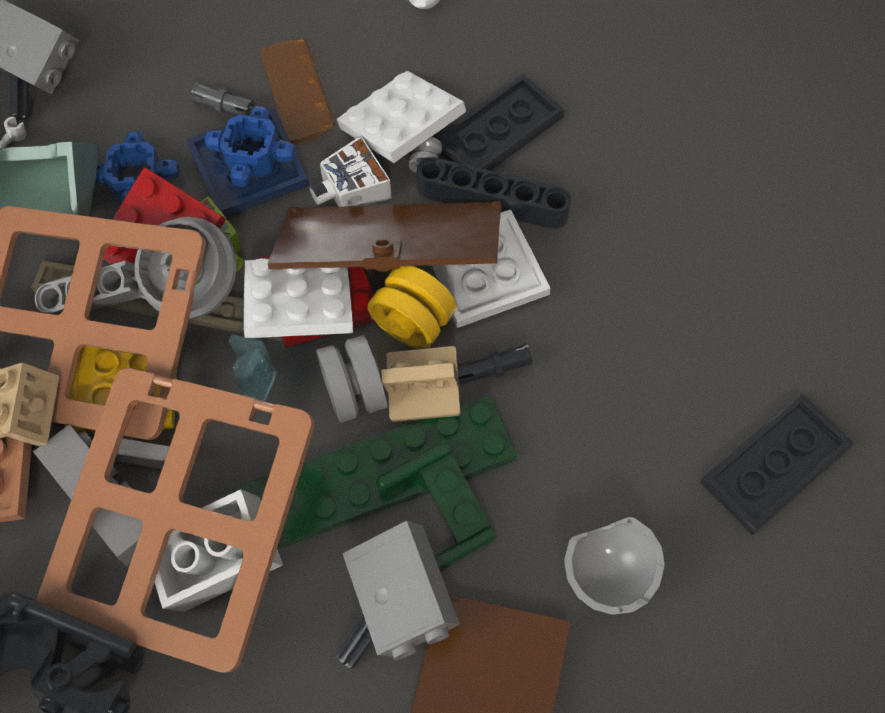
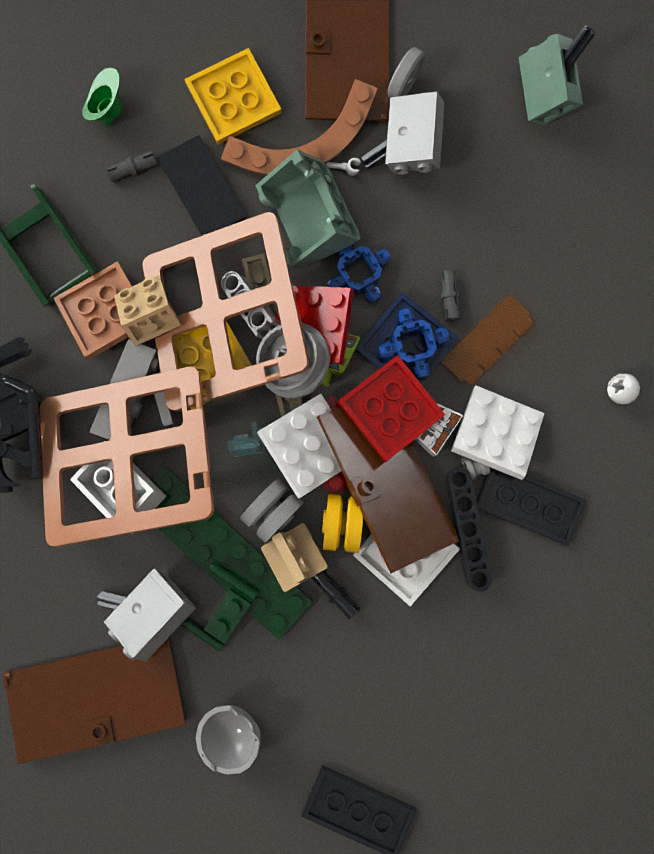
camera: 60 degrees right, 20 degrees up
(308, 194) = (391, 408): none -> red plate

